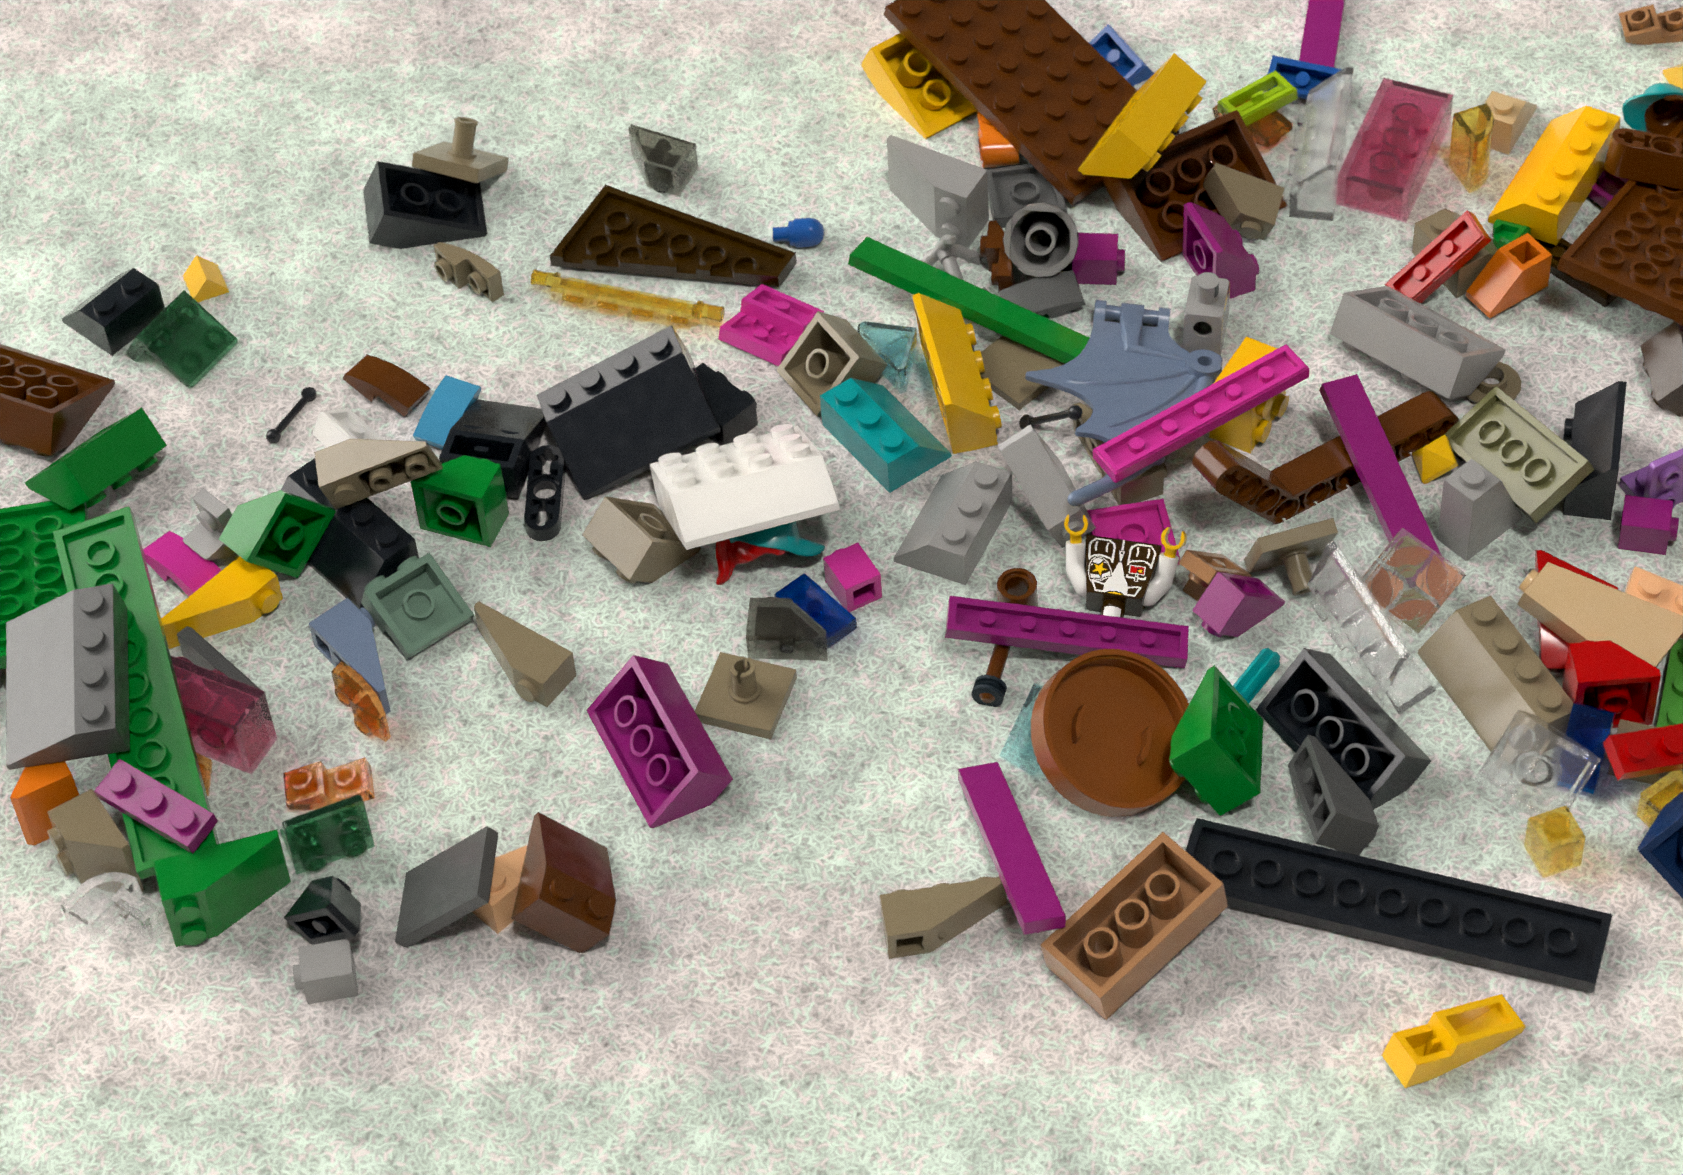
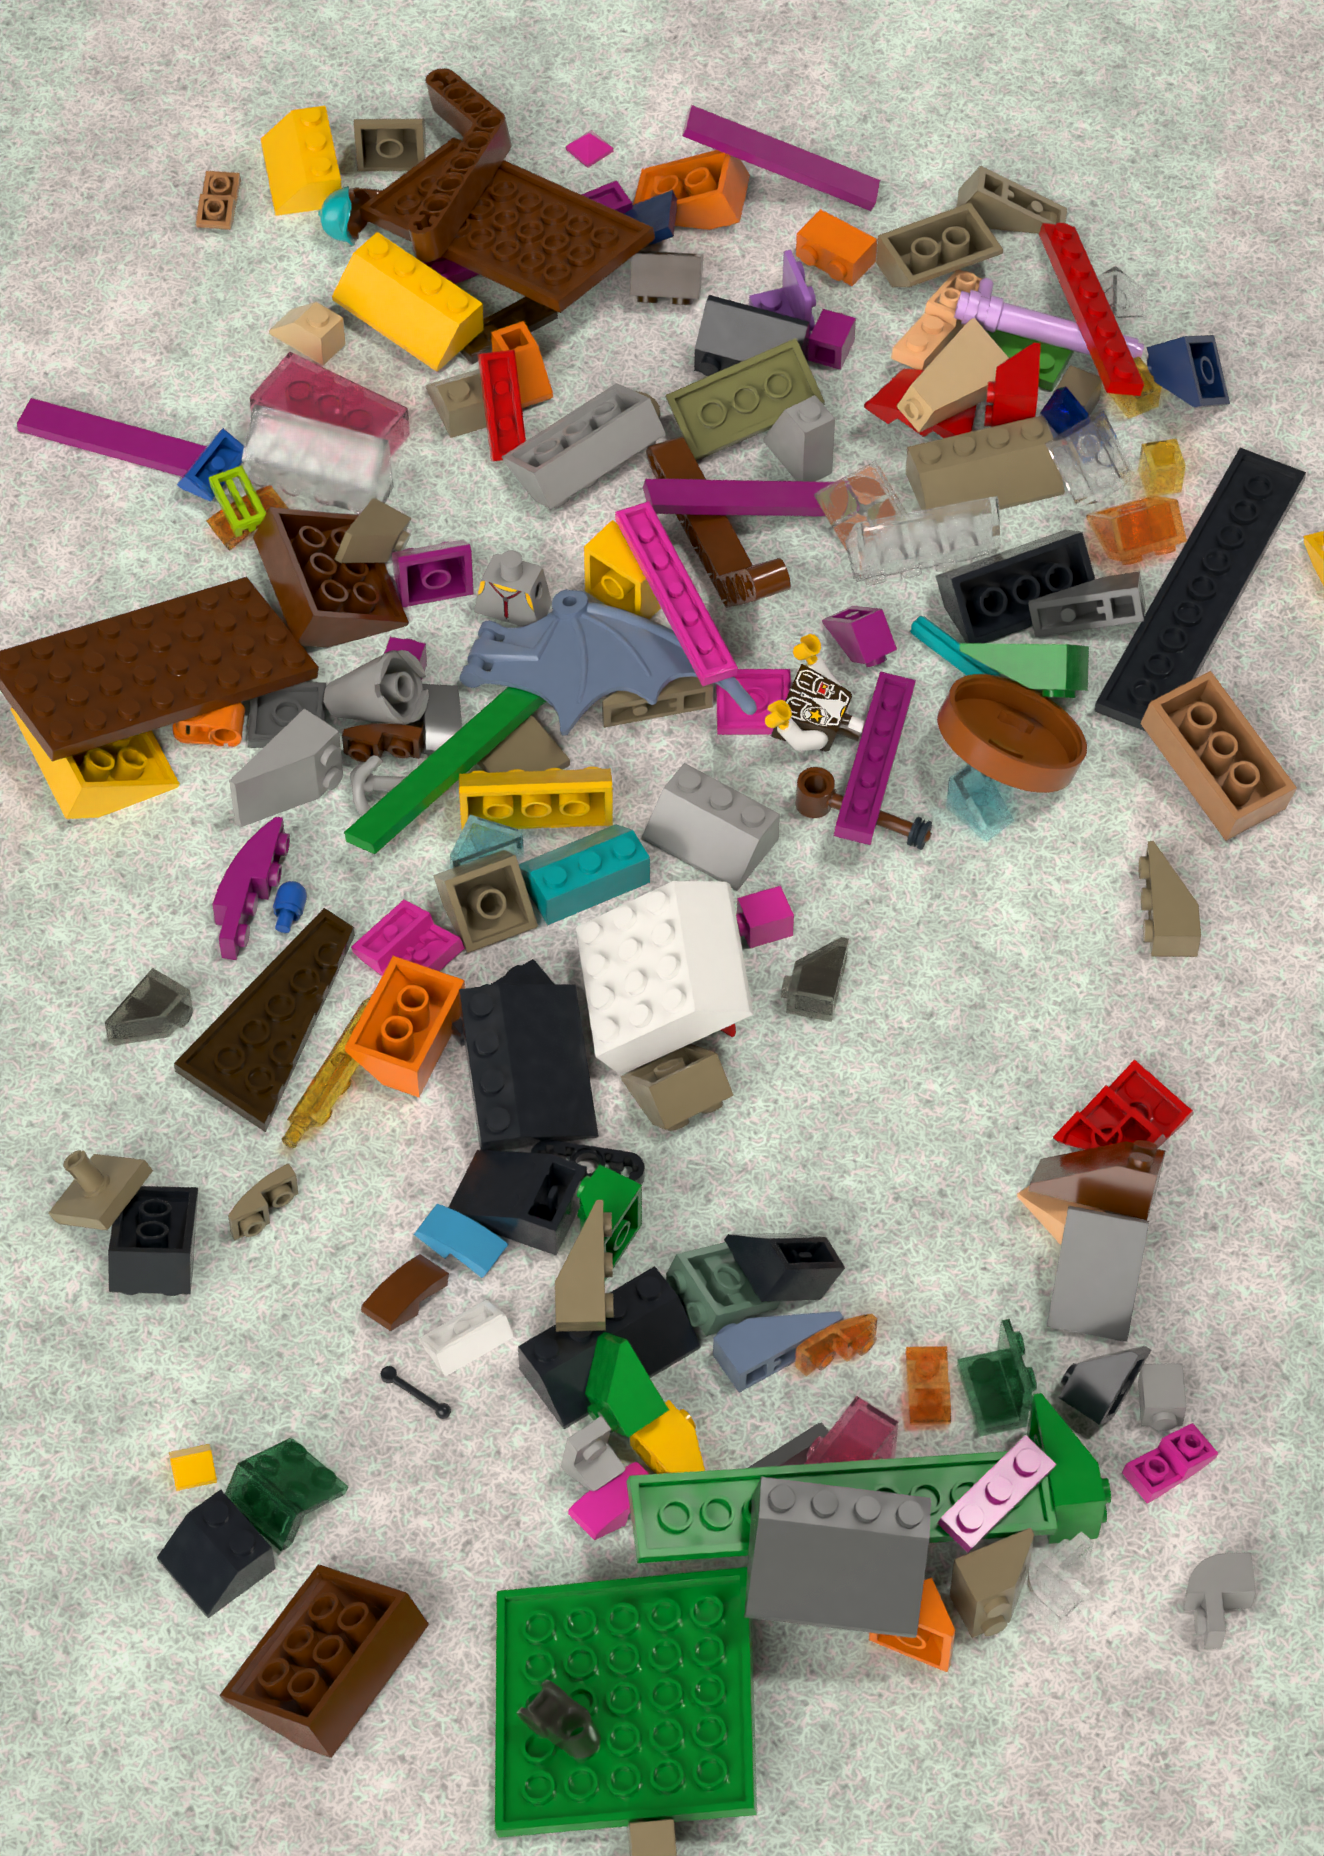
camera: 85 degrees left, 5 degrees up
(100, 462) = (460, 1570): green slope -> none
(109, 1037) = (1217, 1585): none -> light grey brick
(257, 992) = (1171, 1463): none -> dark pink slope
(437, 638) = (786, 1264): none -> black slope
(531, 661) = (807, 1198): dark tan slope -> none
(649, 307) = (406, 1025): none -> orange slope
(658, 742) = (935, 1098): magenta slope -> none
(664, 912) = (1127, 1110): none -> red slope
(745, 695) = (881, 1026): dark tan tile -> none
(820, 194) = (245, 880): none -> magenta slope
(820, 607) = (779, 957): clear blue plate -> none
(1011, 848) = (1117, 831): magenta tile -> none
(1044, 483) = (704, 741): light grey slope -> none
(1074, 413) = (591, 758): black hinge -> none
(1121, 56) = (118, 603): blue slope -> none
(1146, 122) = (276, 577): yellow slope -> none
(1203, 568) = (832, 642): medium nougat slope -> none
(1292, 550) = (818, 576): dark tan tile -> none
(1434, 459) = (717, 464): yellow slope -> none
(1460, 830) = (1139, 528): none -> clear orange slope
(1471, 146) = (360, 351): clear yellow brick -> none
(1506, 232) = (465, 357): green tile -> none

